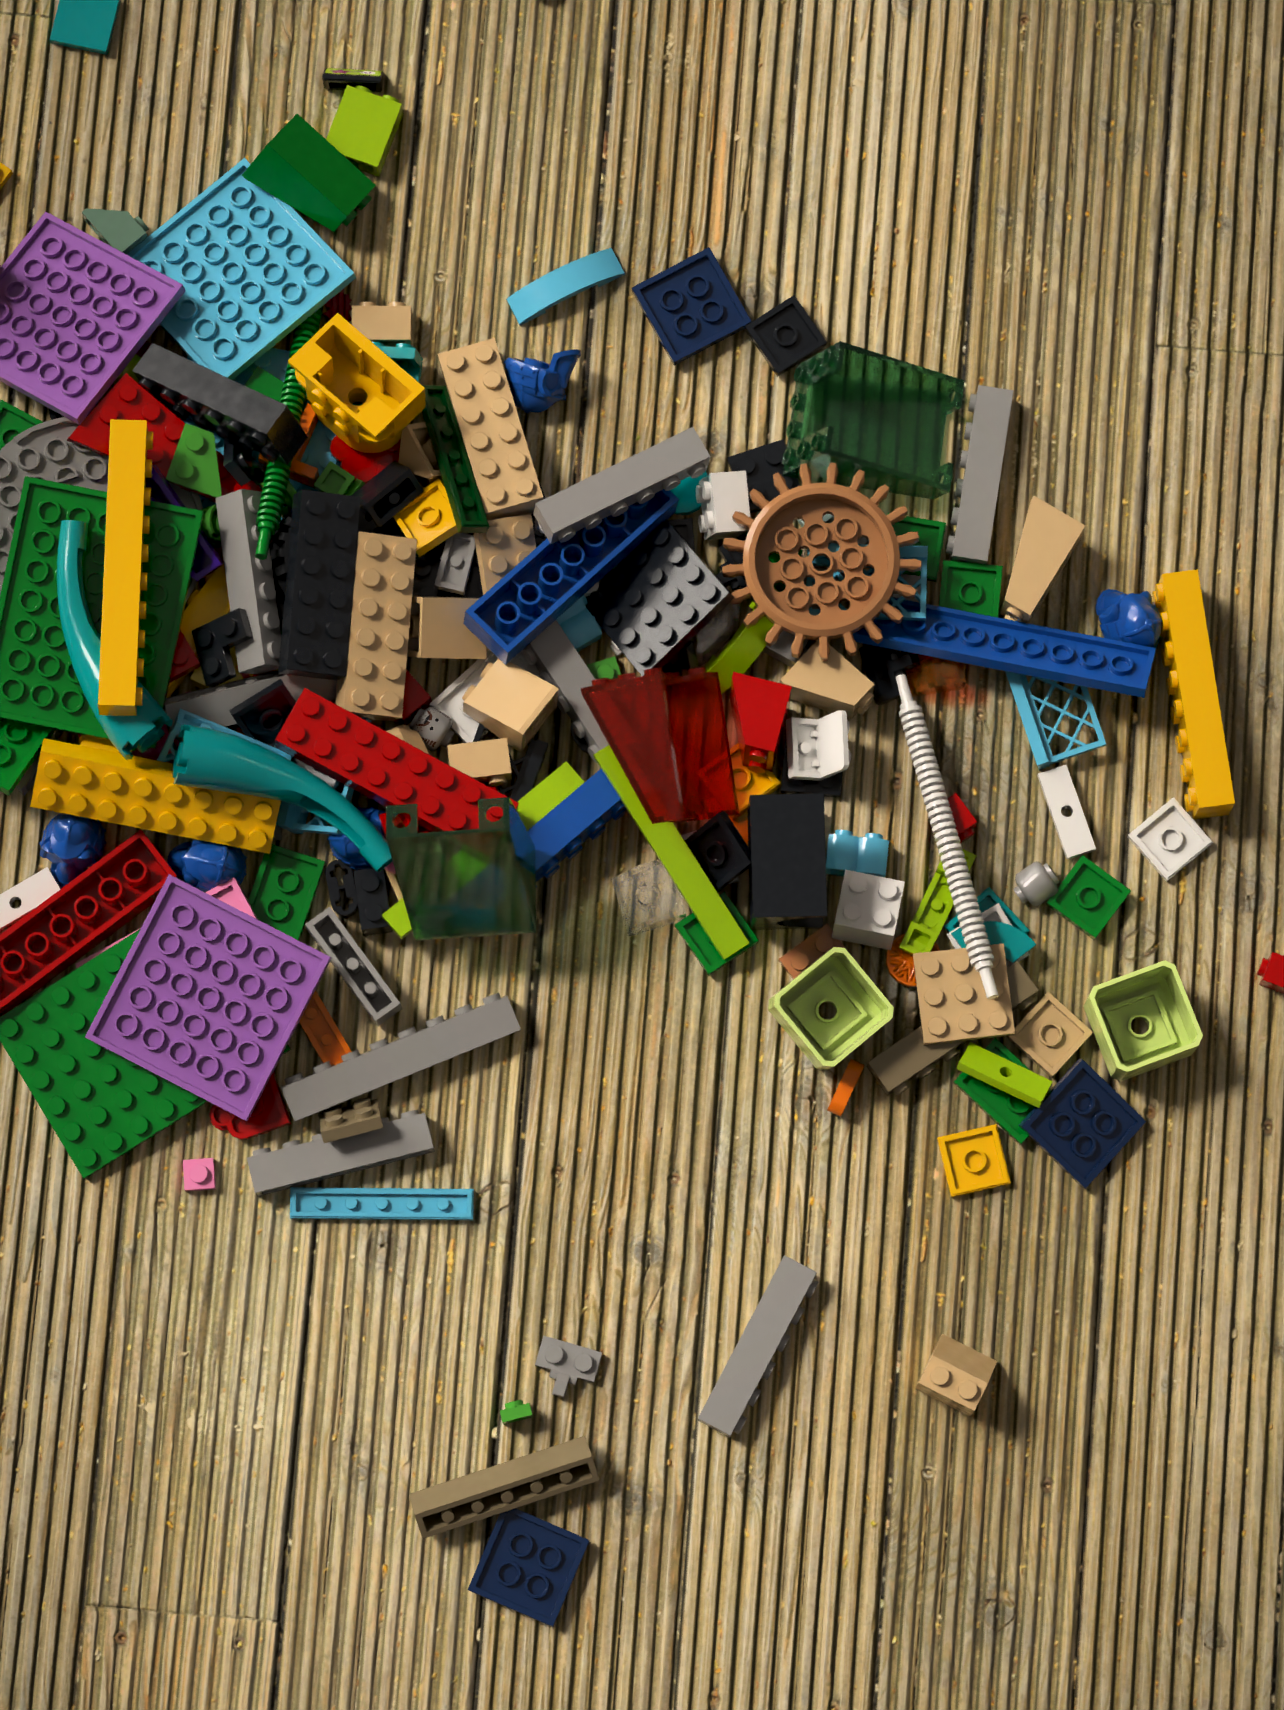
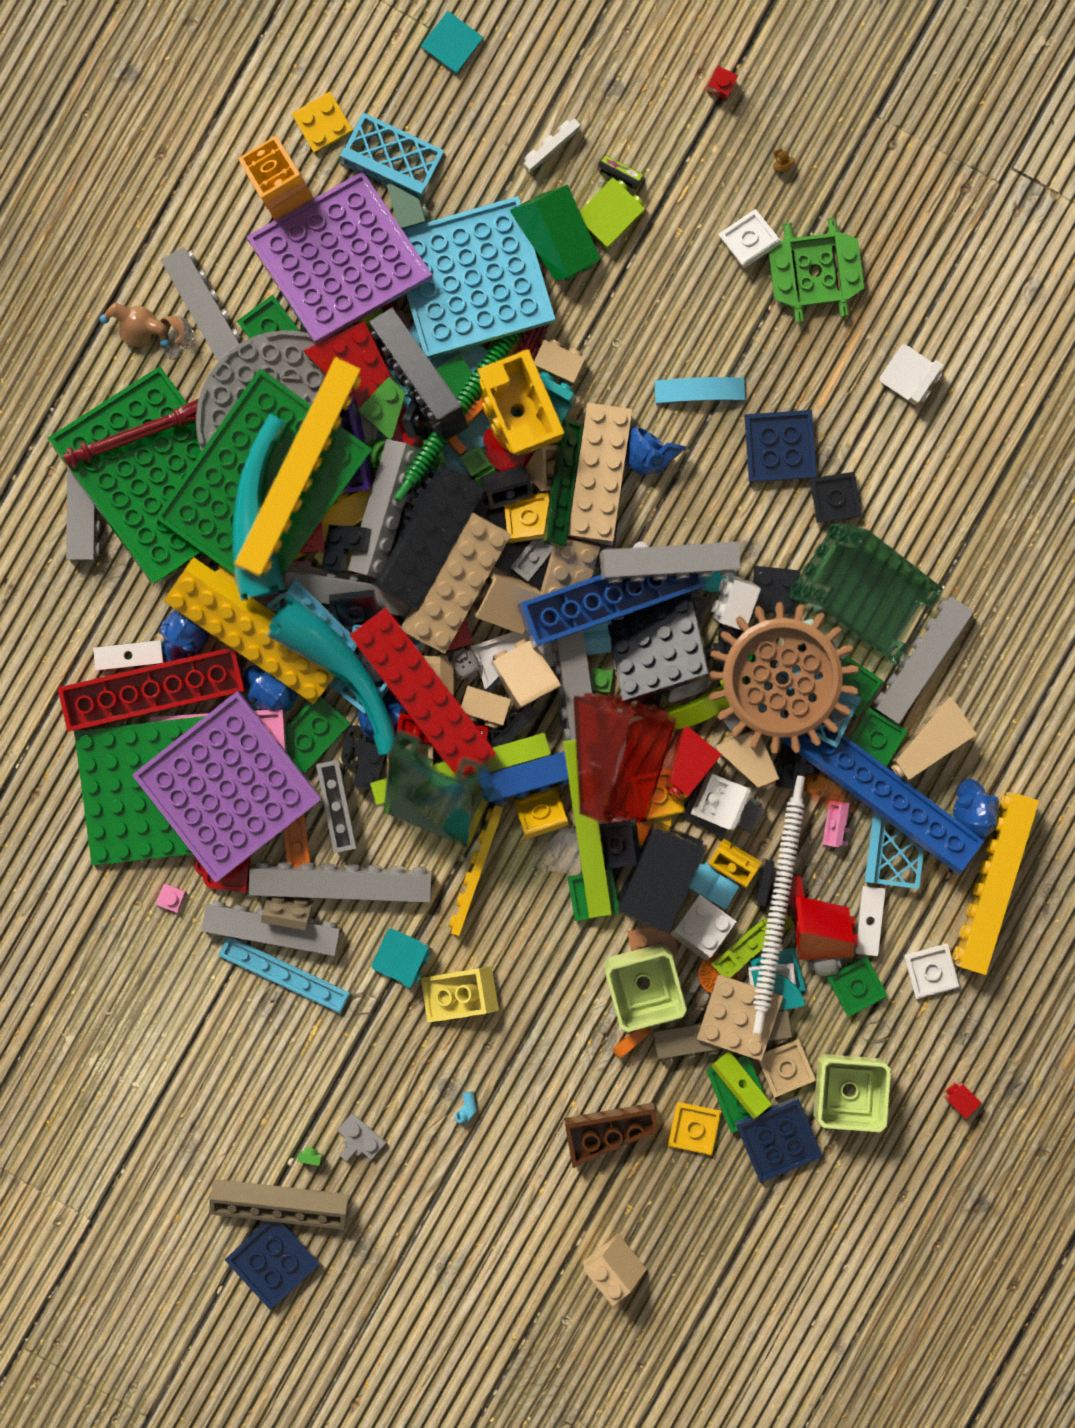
camera: 25 degrees right, 10 degrees up
(67, 202) = (379, 170): none -> medium azure fence
(257, 83) = (551, 144): none -> white plate
(516, 1116) = (401, 957): none -> teal bracket
(542, 85) = (749, 238): none -> white tile
(557, 954) = (471, 879): none -> yellow plate
(607, 862) = (541, 813): none -> yellow tile
(609, 1127) = (459, 994): none -> light yellow slope
(630, 66) = (816, 251): none -> bright green piece
(685, 1264) = (468, 1109): none -> medium azure arm
(757, 1347) = (491, 1187): light grey brick -> none
(807, 156) = (911, 374): none -> white bracket
(862, 750) = (750, 815): none -> dark grey brick
(862, 1214) = (608, 1130): none -> reddish brown wedge
(870, 815) = (735, 863): none -> yellow brick
(915, 819) = (764, 882): none -> black tile
(969, 715) = (835, 824): none -> bright pink plate
(1014, 844) = (823, 930): none -> red slope

